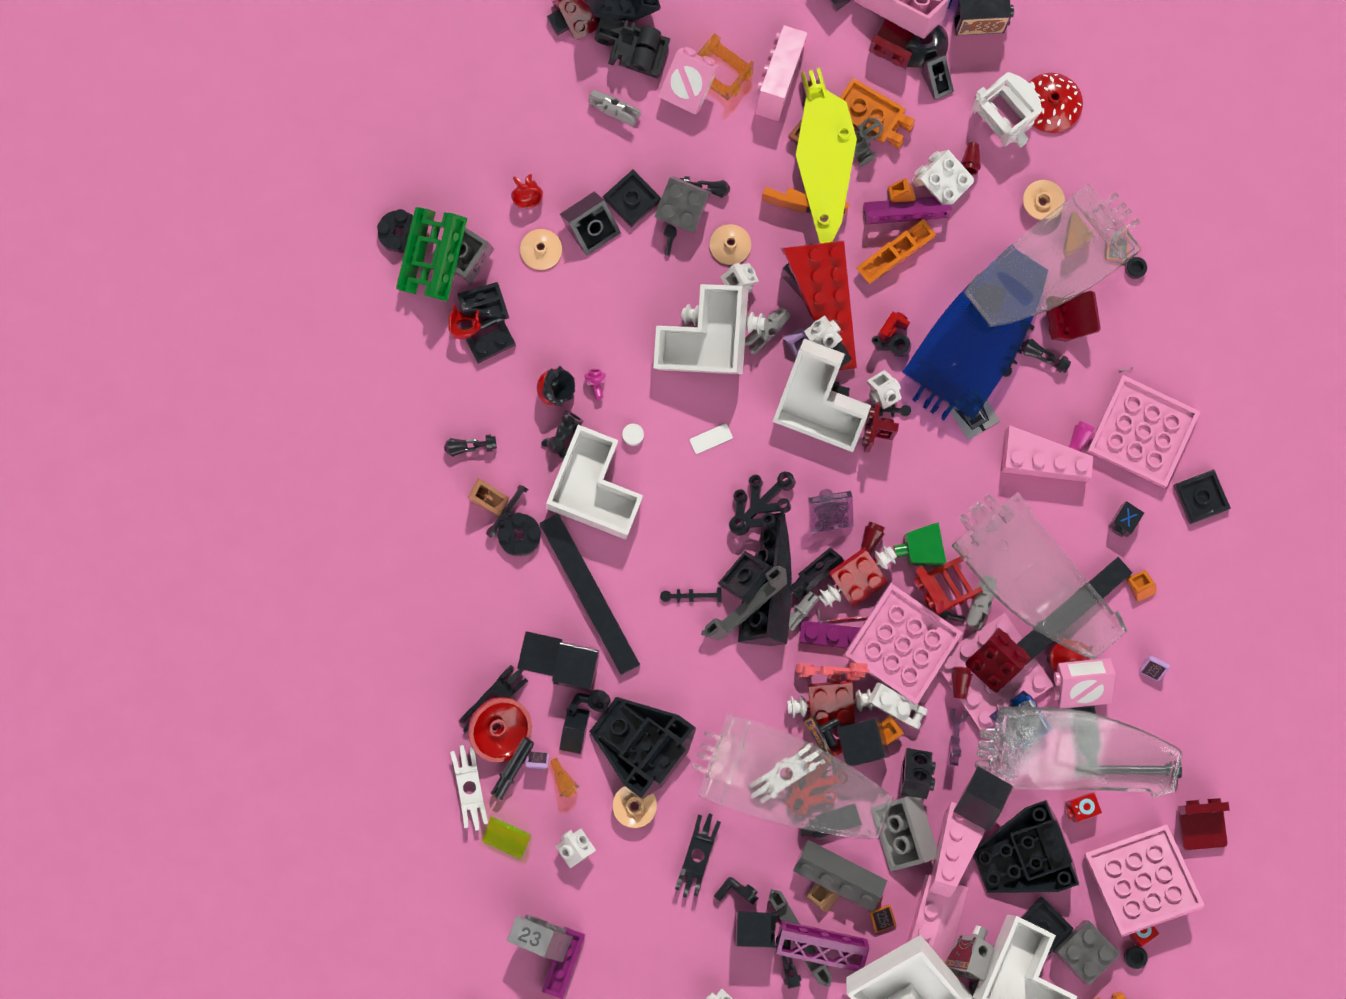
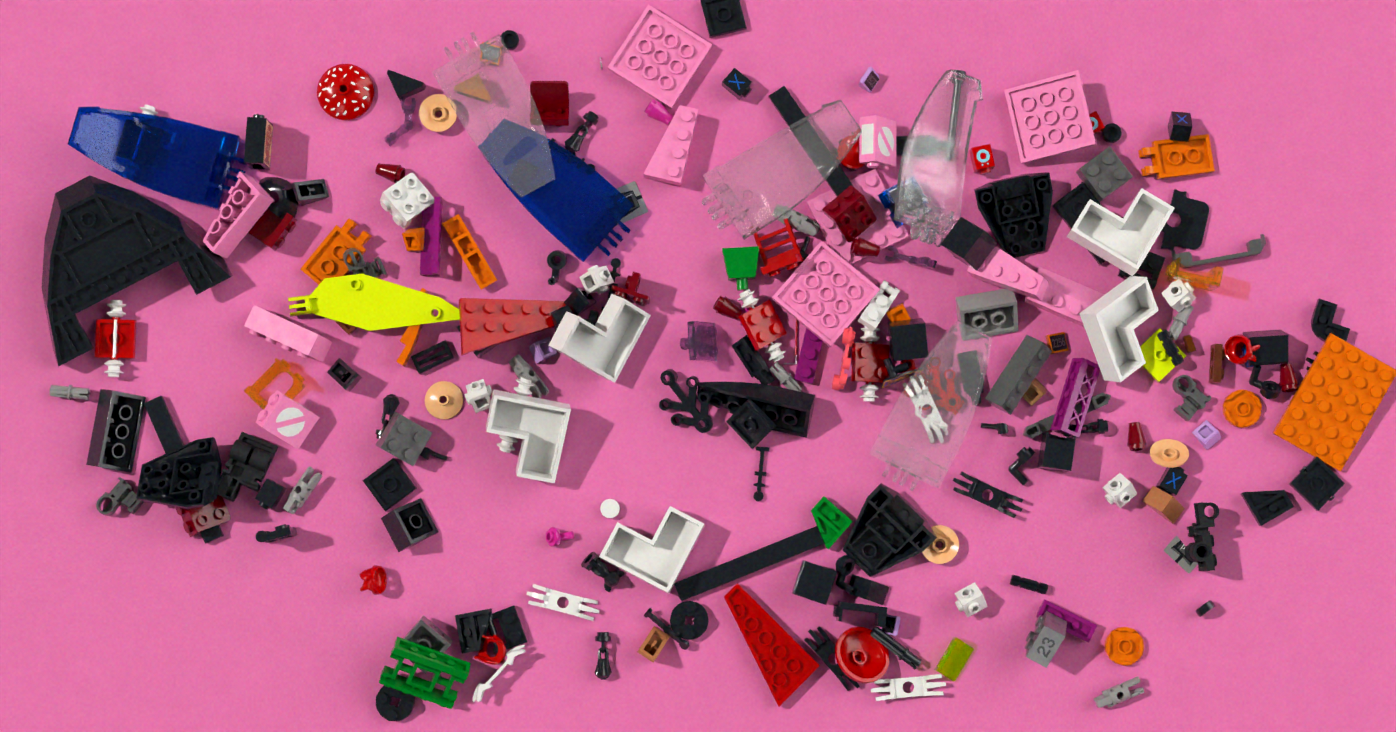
camera: 80 degrees left, 5 degrees up
(458, 346) = (511, 654): none -> white piece
(494, 633) = (777, 654): none -> red wing
(519, 407) = (573, 608): none -> white piece
(539, 653) = (796, 613): black sticker -> none
(544, 258) = (437, 575): light nougat dish -> none
(551, 744) = (880, 616): none -> black panel
(556, 386) = (560, 572): black hair -> none
(565, 87) = (282, 532): none -> black plate
(566, 785) = (914, 602): clear yellow cone -> none
(600, 914) = (1028, 584): none -> black axle
(606, 75) = (270, 494): none -> black brick
(646, 678) = (829, 521): none -> green wing
(711, 438) = (621, 439): white sticker -> none
(720, 629) = (793, 451): dark grey piece -> none
(743, 137) = (344, 375): none -> black slope
(776, 864) = (1001, 427): none -> black hand
(784, 241) = (447, 350): none -> black tile
(824, 332) = (543, 326): white brick -> none
(857, 374) = (579, 301): none -> black slope
(889, 328) = (539, 267): red bracket -> none
(917, 773) = (939, 297): black brick -> none
(971, 955) = (1097, 272): light grey torso -> none
(1020, 97) = (342, 118): white animal -> none
(1026, 171) = (404, 128): none -> clear purple piece
(1067, 161) = (404, 85): none -> black slope
(1142, 585) = (795, 79): orange slope -> none
(1203, 824) = (1007, 58): dark red bracket -> none

